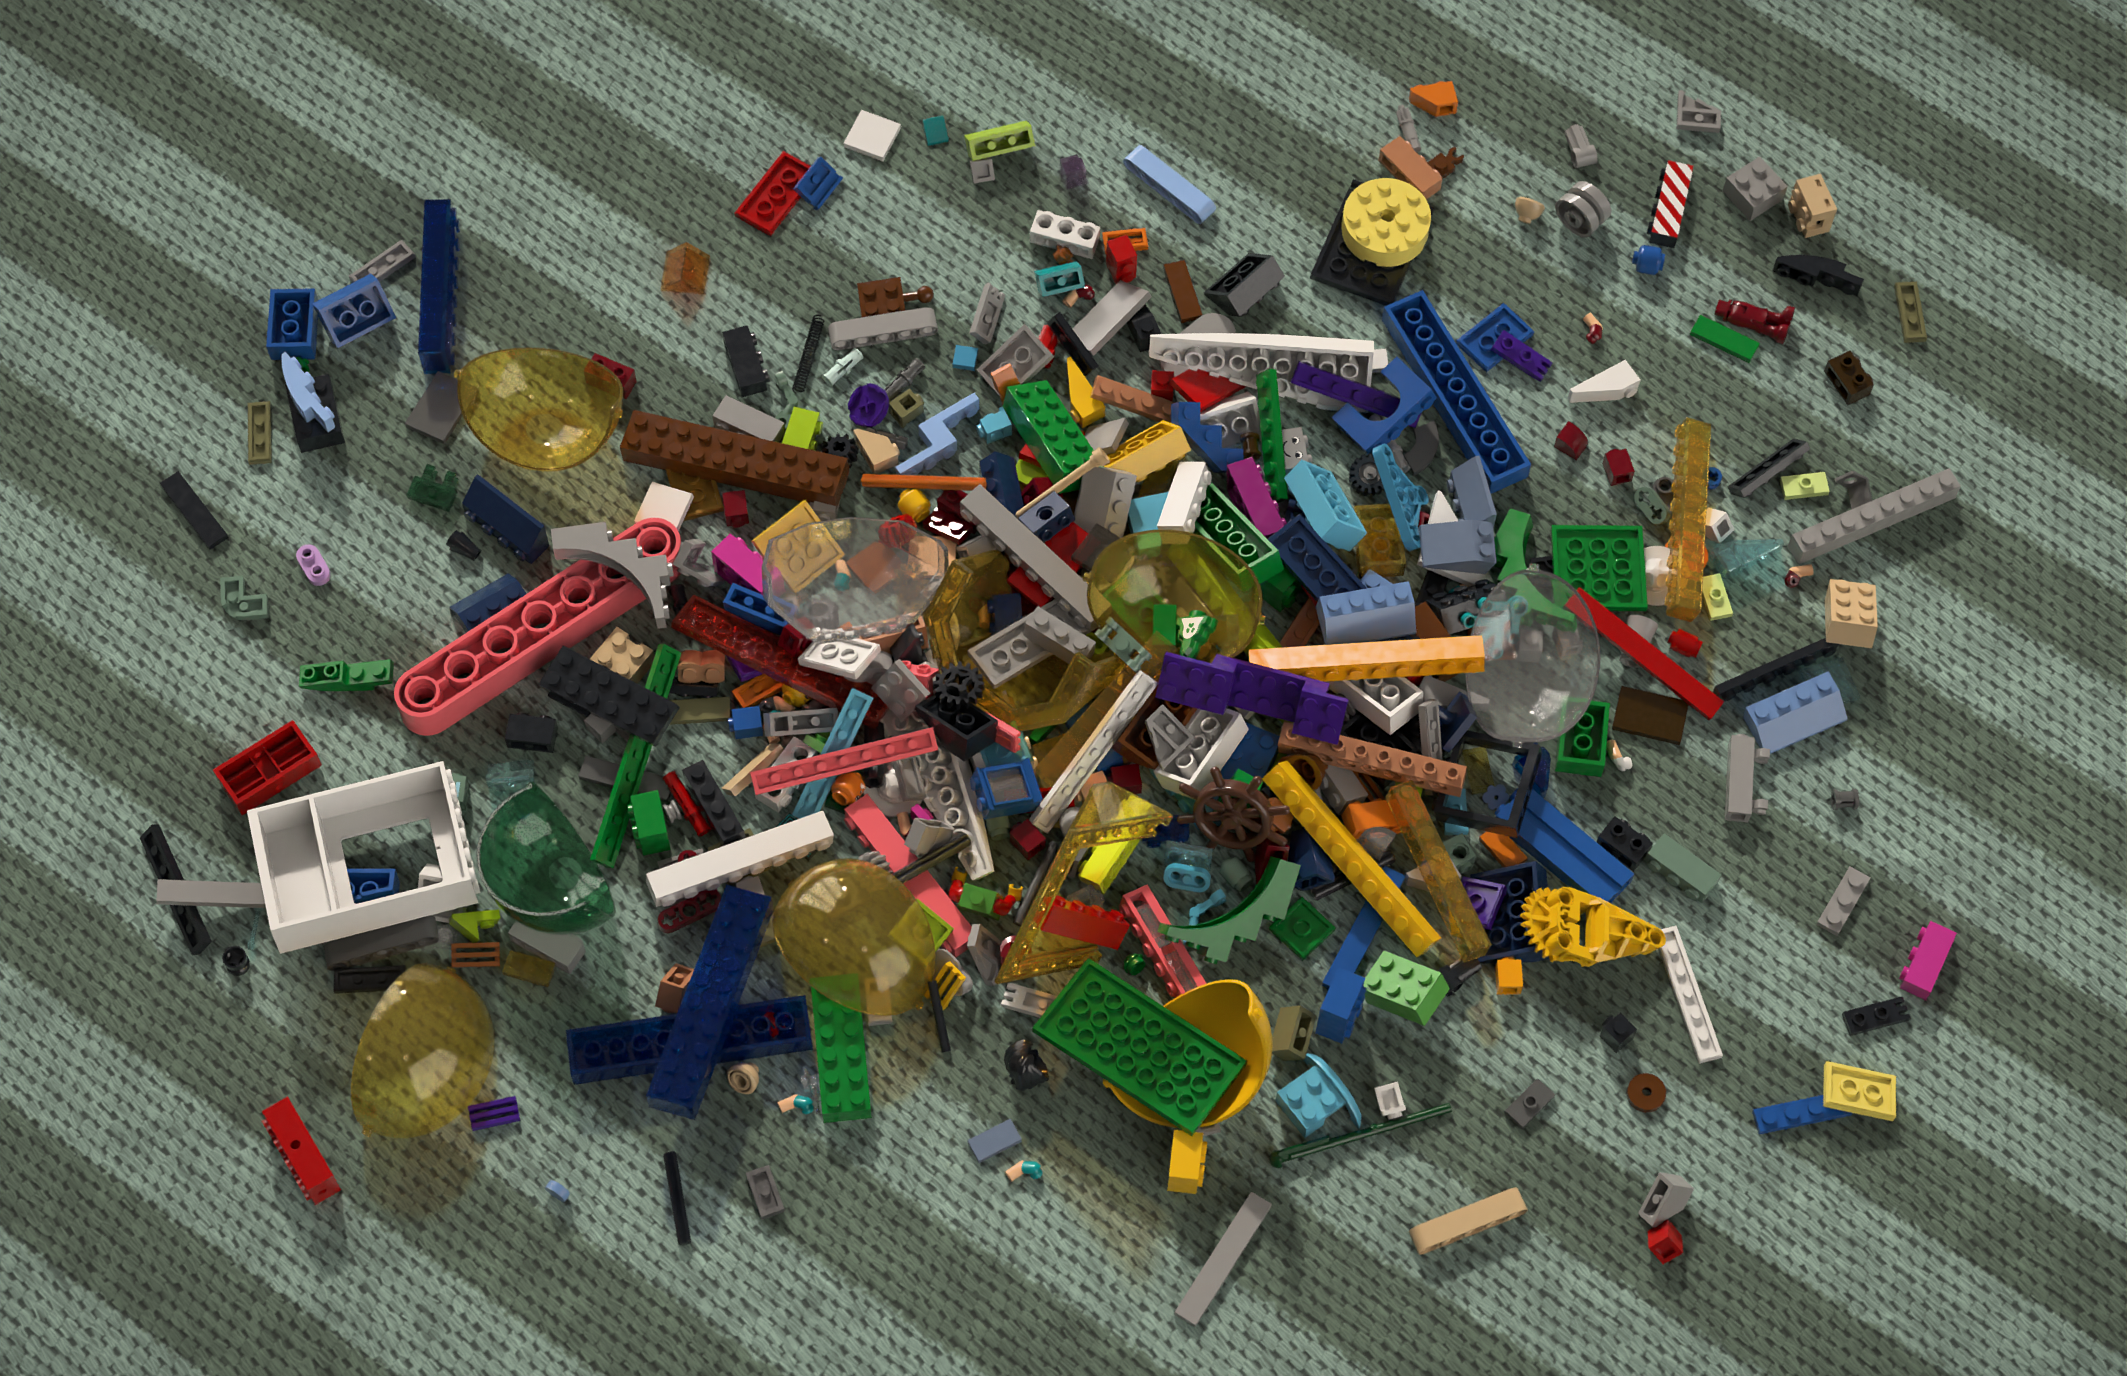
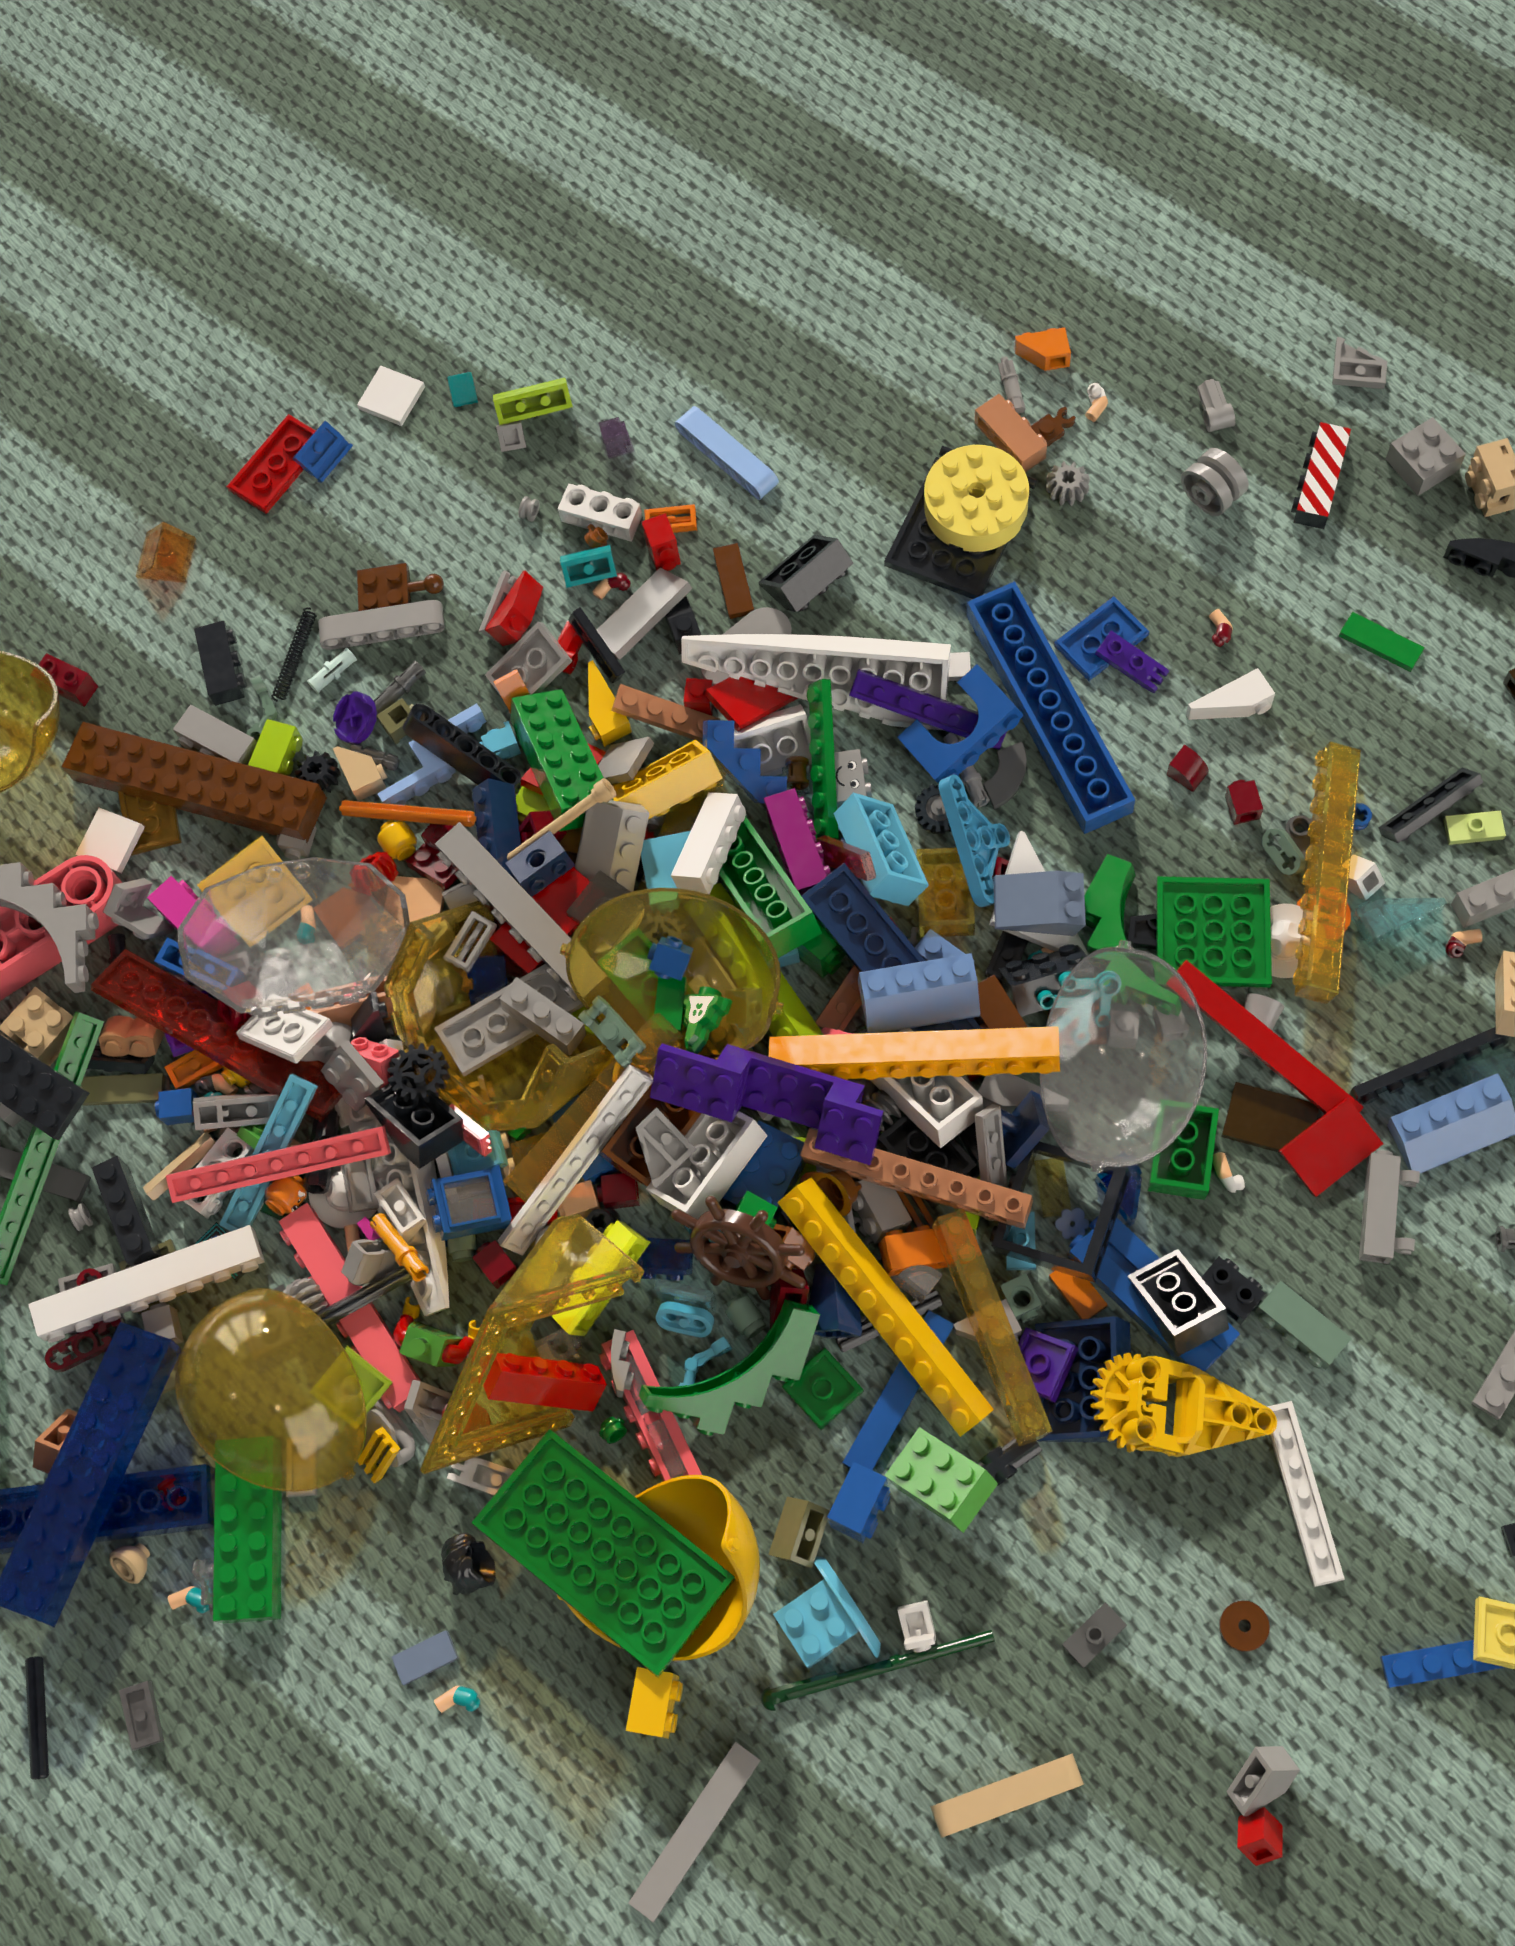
camera: 15 degrees right, 5 degrees up
(648, 823) = (47, 1233): green brick -> none
(690, 810) = (96, 1205): red pin -> none
(735, 508) = (191, 841): dark red brick -> none
(939, 1016) = (369, 1492): black bar -> none
(947, 796) = (401, 1209): none -> white slope
(957, 828) = (404, 1254): none -> light orange pin
(961, 427) = (457, 747): none -> black beam
(965, 357) = (474, 660): dark azure tile -> none
(984, 597) = (458, 962): none -> light grey tile
(1000, 317) = (515, 611): none -> red slope
(1002, 231) = (528, 508): none -> light grey bush
(1140, 908) = (620, 1369): none -> light grey slope
(1164, 588) = (669, 958): none -> blue brick
(1310, 510) = (856, 859): none -> clear red tile
(1460, 210) = (1067, 483): none -> light grey gear
(1471, 492) = (1061, 835): sand blue slope -> none
(1482, 142) = (1098, 400): none -> arm
(1508, 976) = (1075, 1462): light orange brick -> none
(1528, 209) = (1149, 482): tan brick -> none
(1586, 849) = (1179, 1302): none -> black slope
(1617, 1032) = (1210, 1544): black brick -> none
(1648, 259) = (1292, 544): blue head -> none
(1684, 643) = (1317, 1028): red brick -> none
(1699, 733) = (1331, 1147): none -> red tile
(1715, 597) = (1358, 969): yellowish green plate -> none
(1755, 318) = (1419, 616): dark red piece -> none

